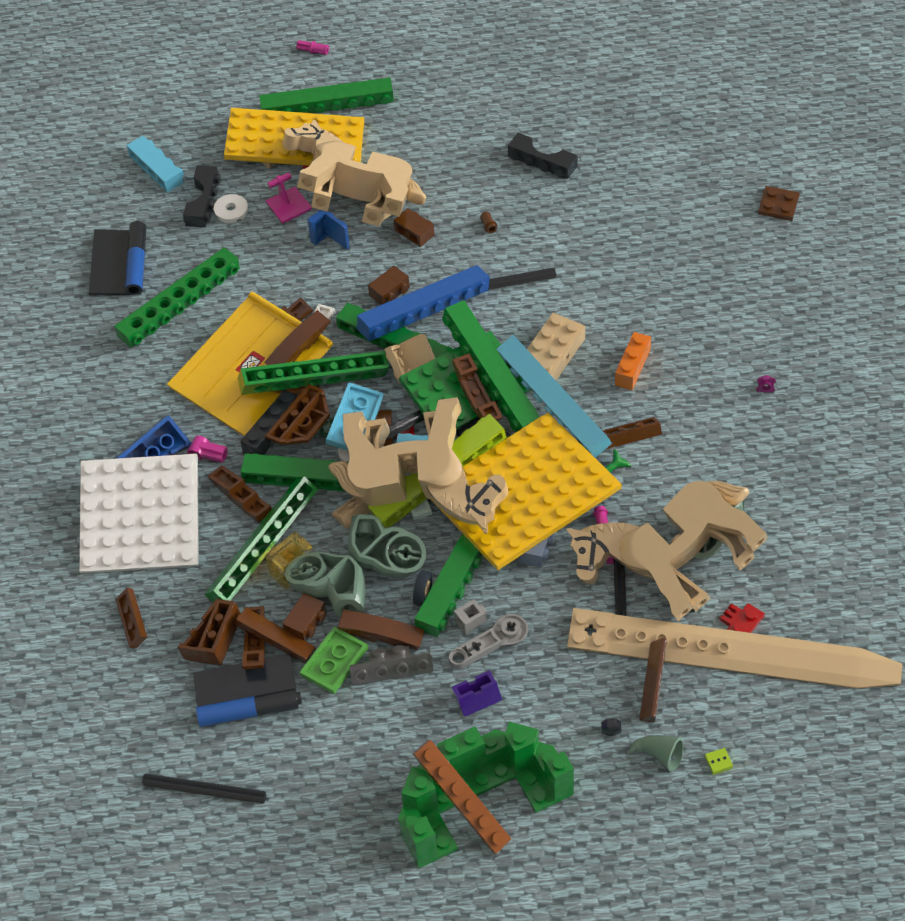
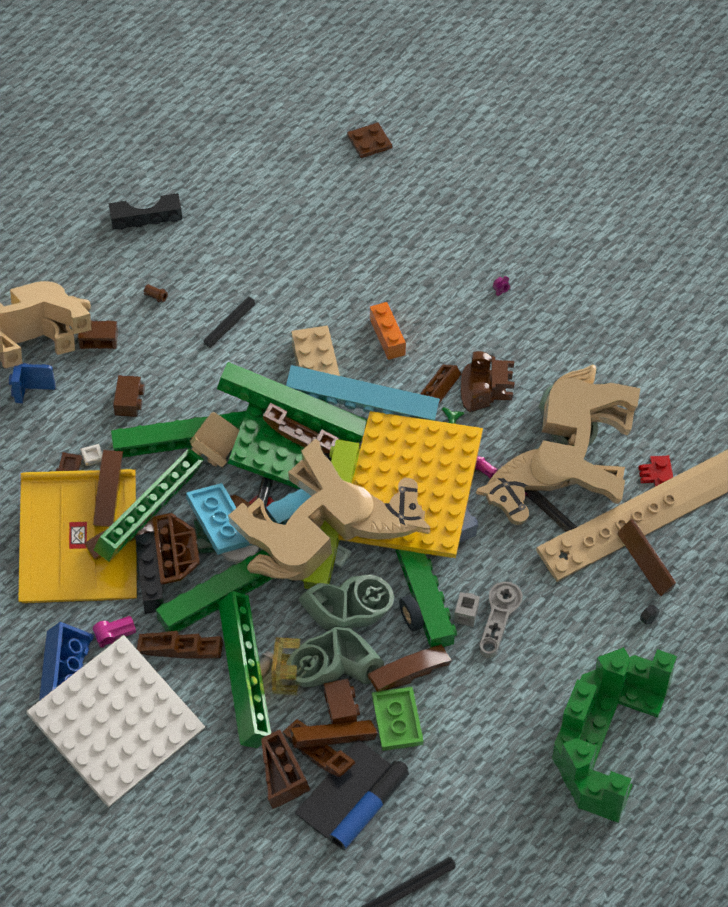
camera: 45 degrees left, 0 degrees up
(131, 618) = (196, 809): reddish brown plate -> none
(349, 509) = (285, 595): tan slope -> none
(390, 664) = (444, 688): flat silver bracket -> none
(422, 303) = (177, 390): blue brick -> none
(461, 796) = (612, 739): dark orange plate -> none
(477, 693) = (534, 661): dark purple brick -> none
(662, 748) = (700, 602): sand green hat -> none
(670, 452) = (483, 386): none -> reddish brown piece

